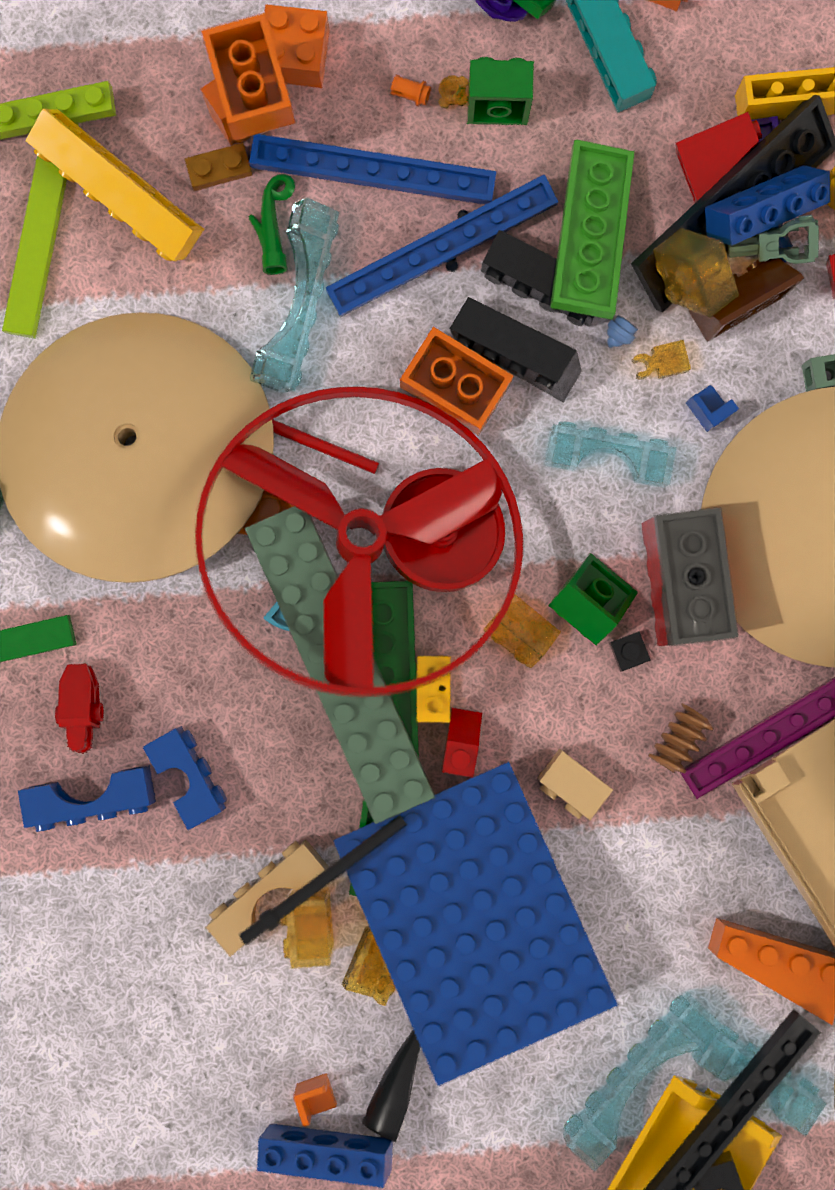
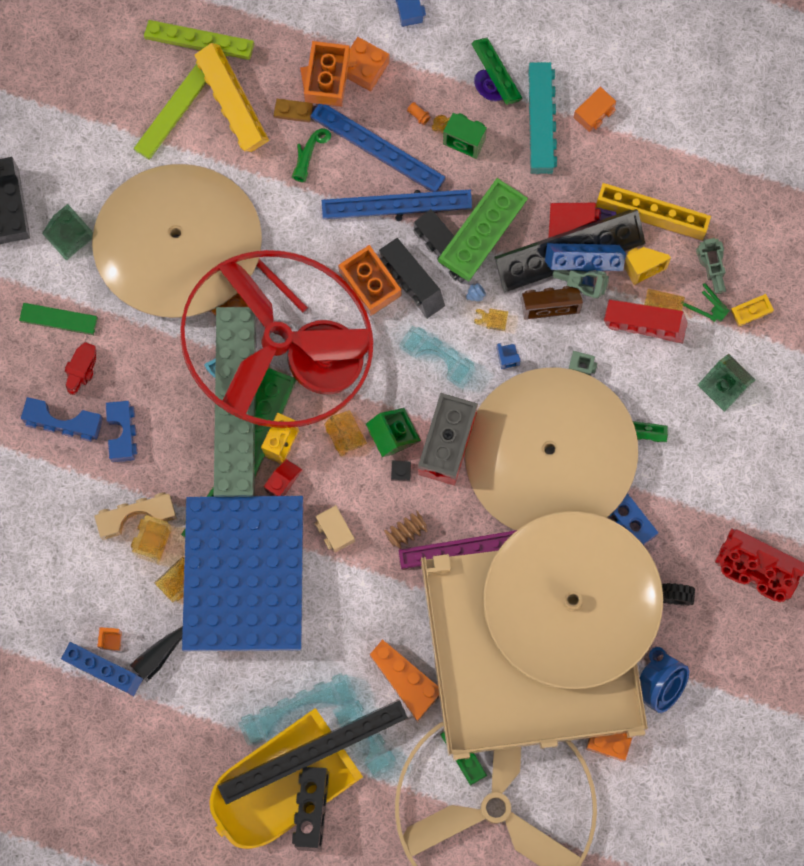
camera: 25 degrees right, 10 degrees down
(271, 917) = (134, 517): black bar -> none
(310, 235) = (325, 169): clear light blue arch -> none
(696, 272) = (524, 276): clear yellow brick -> none

